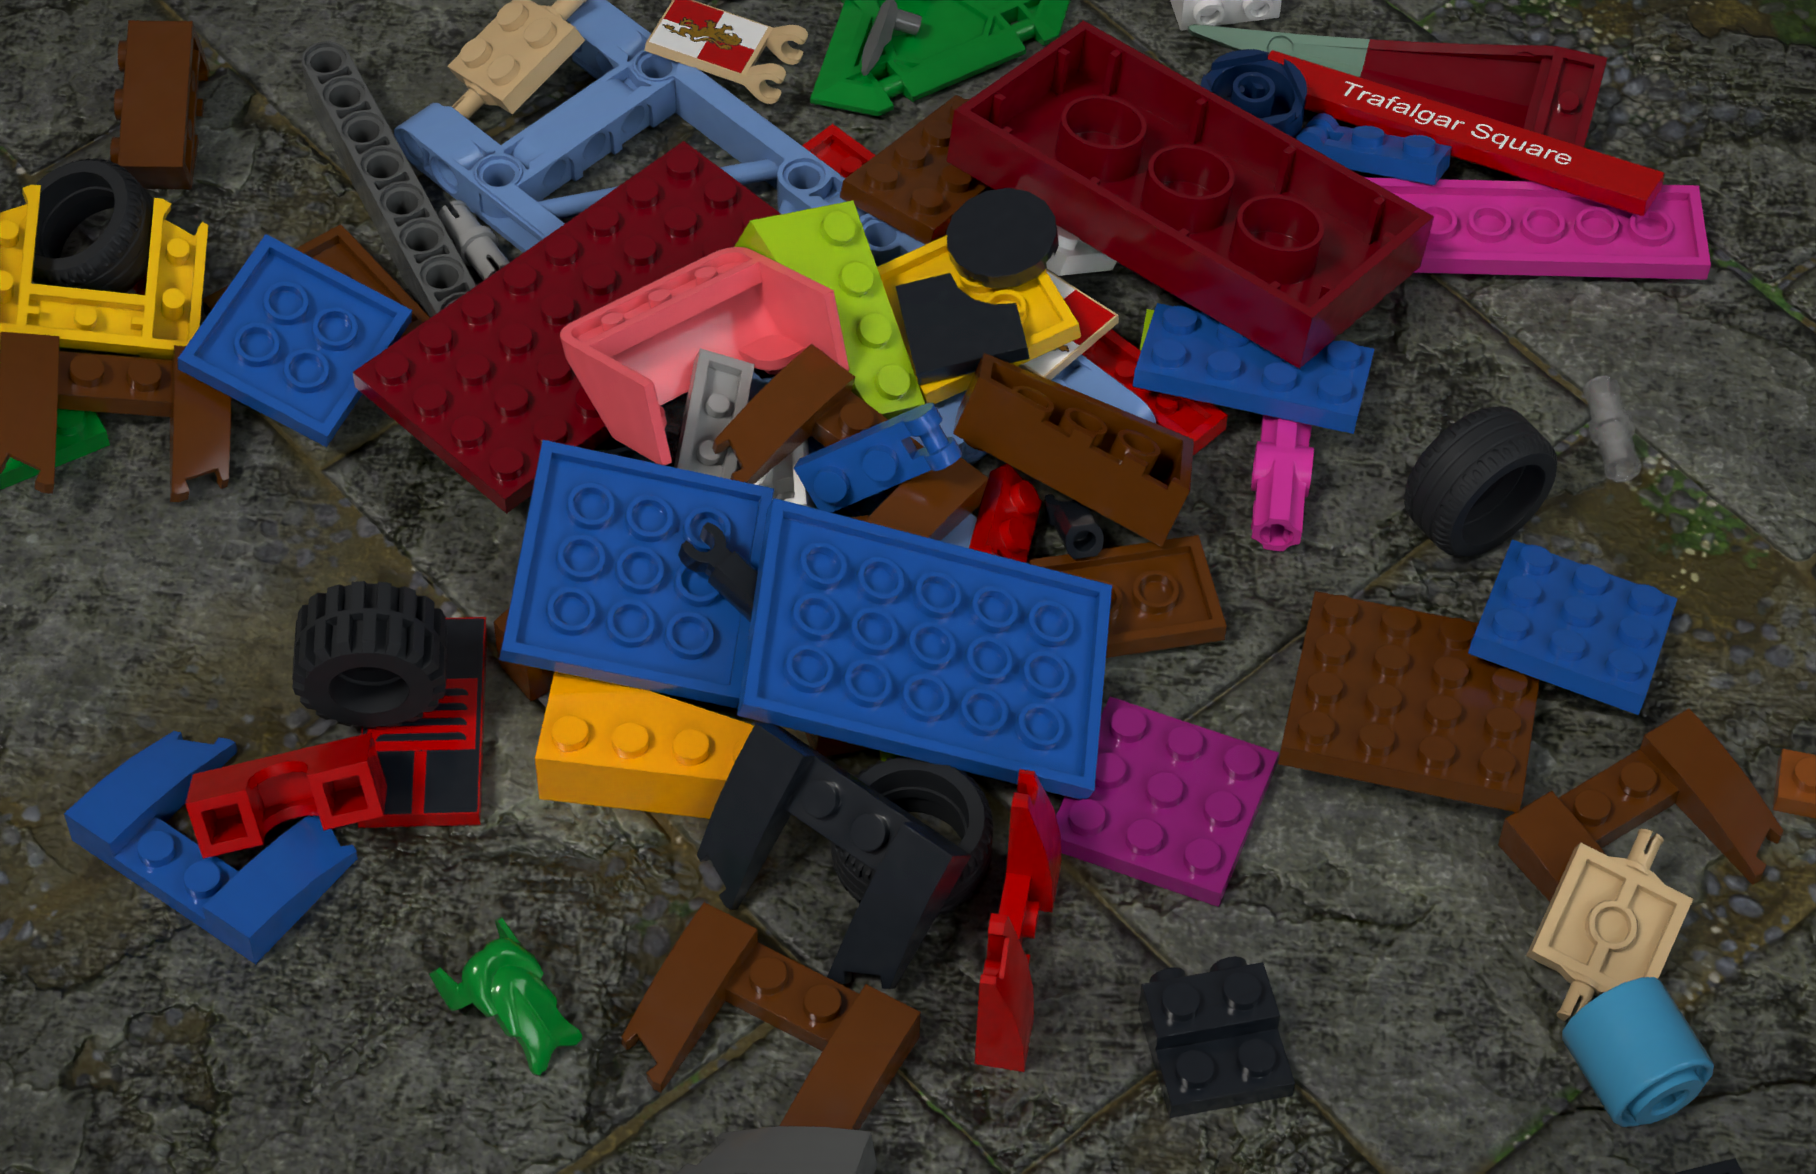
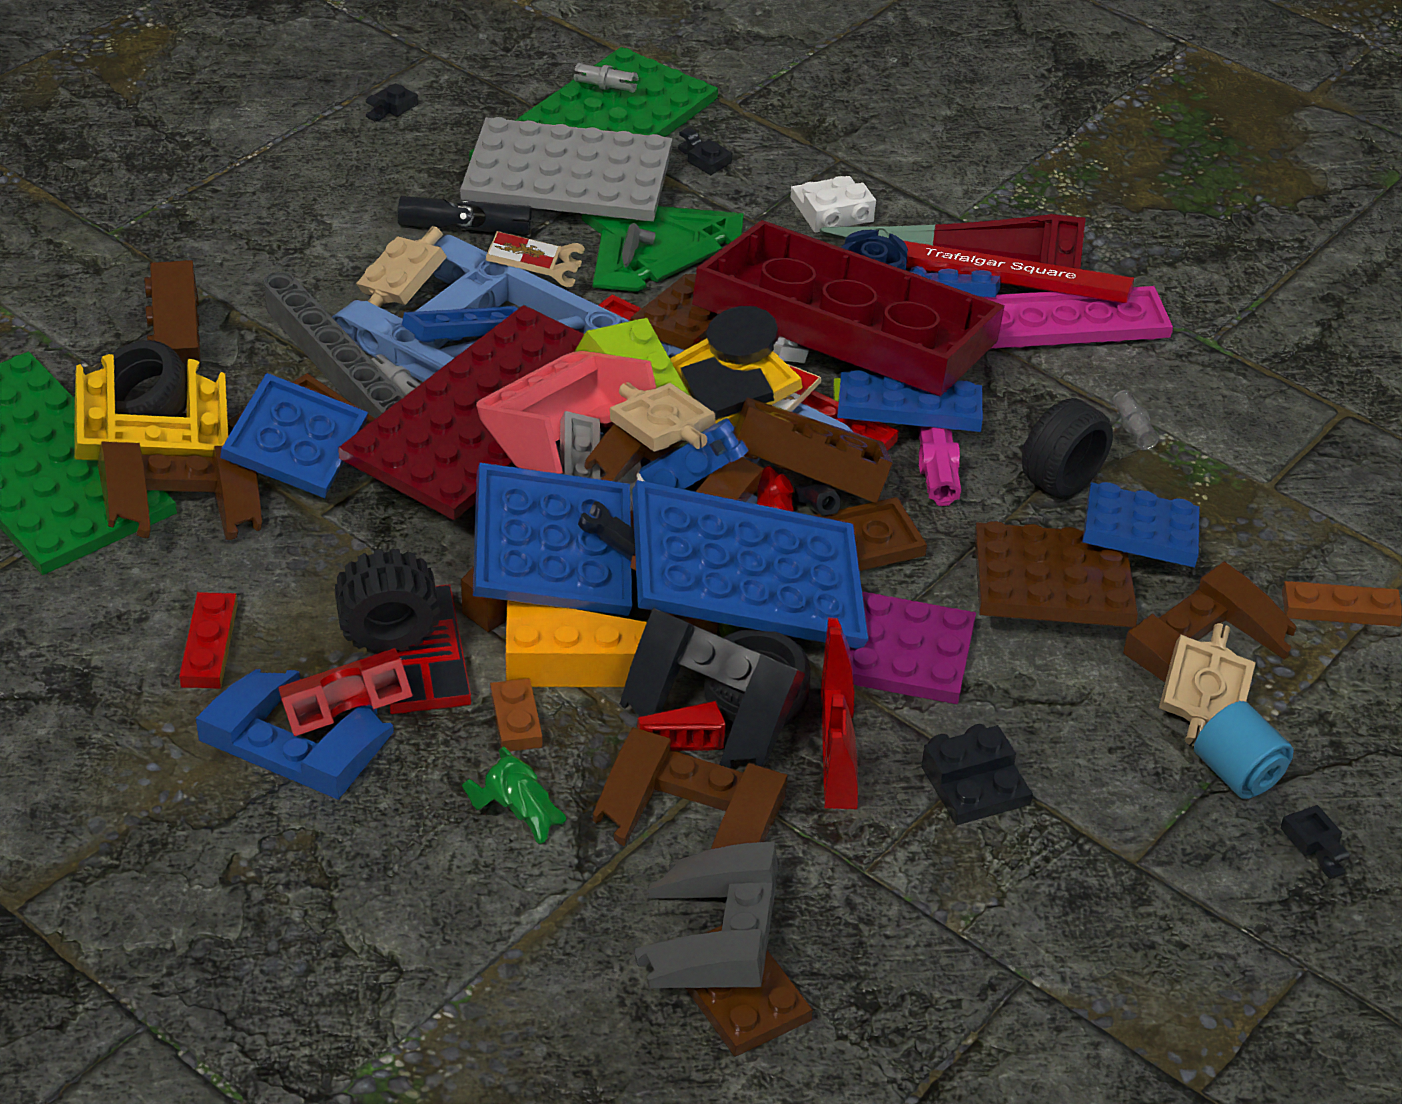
camera: 10 degrees left, 10 degrees down
(114, 673) = (208, 640): none -> red plate
(541, 852) = (516, 714): none -> dark orange plate
(580, 160) = (454, 323): none -> blue plate
(788, 908) = (692, 727): none -> red slope
(838, 384) = (662, 416): none -> tan plate

